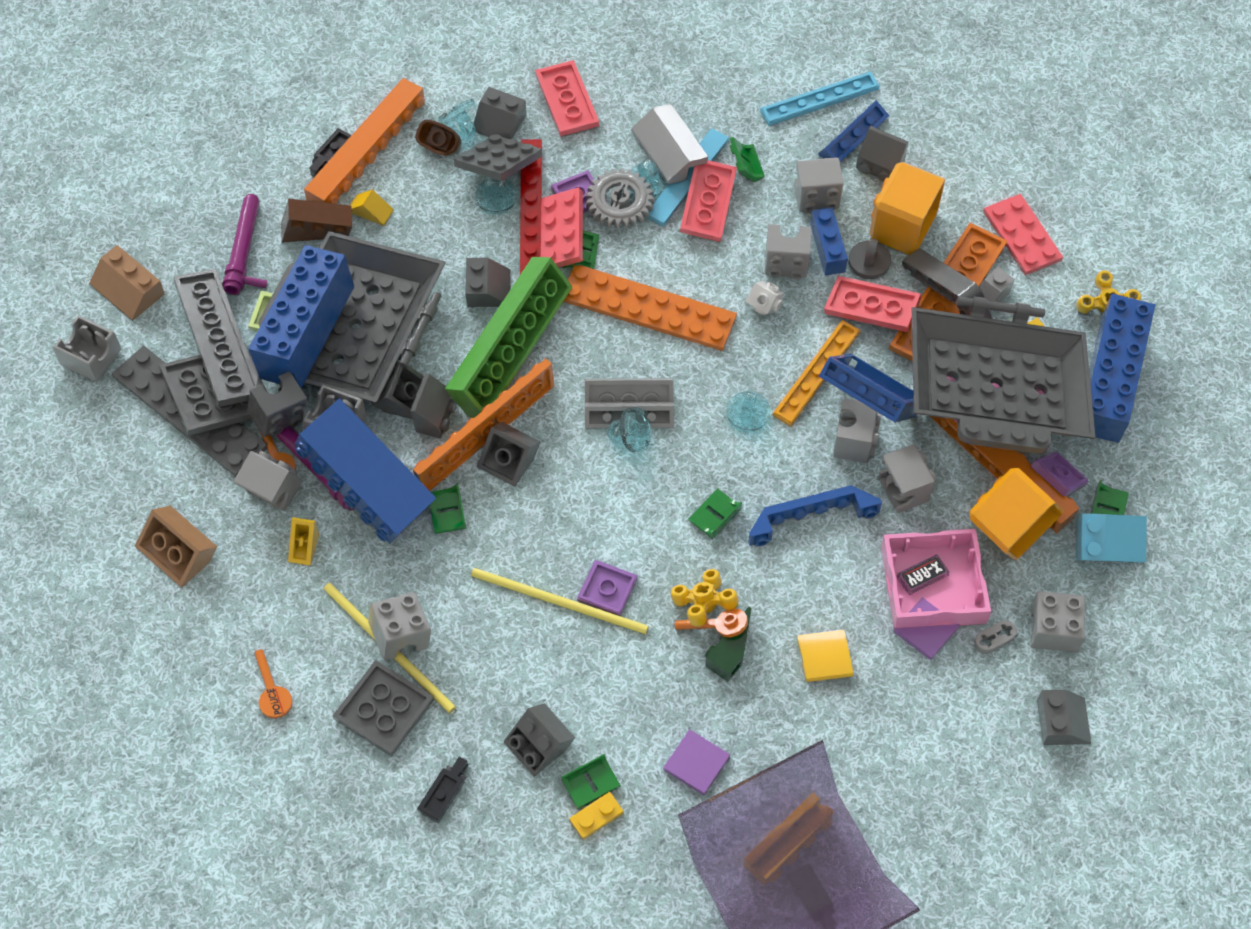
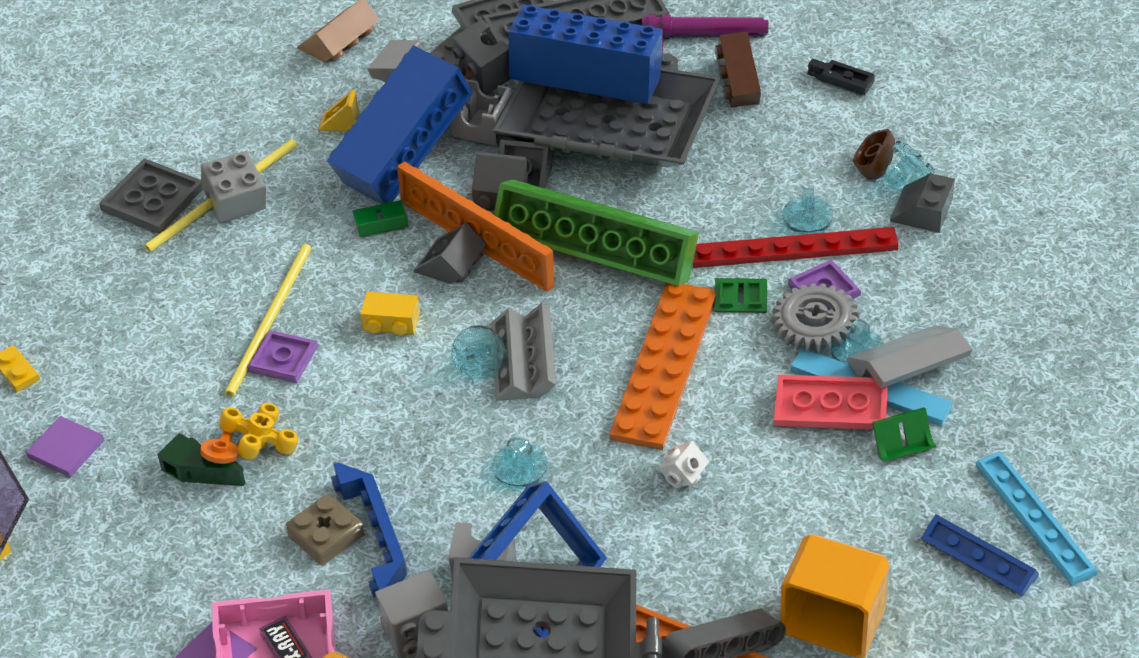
camera: 90 degrees right, 15 degrees down
(275, 700) = (170, 122): orange piece -> none
(365, 143) = (858, 99): orange brick -> none
(371, 207) = (769, 116): yellow slope -> none
(443, 790) = (57, 248): black hinge -> none
(486, 282) = (678, 207): dark grey slope -> none
(498, 157) = (849, 198): dark grey plate -> none
(538, 738) = (107, 310): dark grey slope -> none
(562, 227) = (760, 268): coral plate -> none
(567, 98) = (968, 261): coral plate -> none
(572, 500) = (390, 313): none -> yellow brick
(601, 776) = (45, 354): green piece -> none
(720, 504) = (367, 434): green piece -> none
(787, 255) = (752, 478): light grey piece -> none
(806, 562) = (325, 529): none -> dark tan brick
(809, 381) = (612, 543): light orange tile -> none
(818, 184) = (867, 505): light grey piece -> none
(825, 655) = (183, 553): yellow slope -> none
(828, 241) = (782, 527): blue brick -> none
(869, 259) = (762, 579): dark grey tile -> none
(872, 303) = (686, 578): coral plate -> none
(881, 153) = (933, 578): dark grey slope -> none

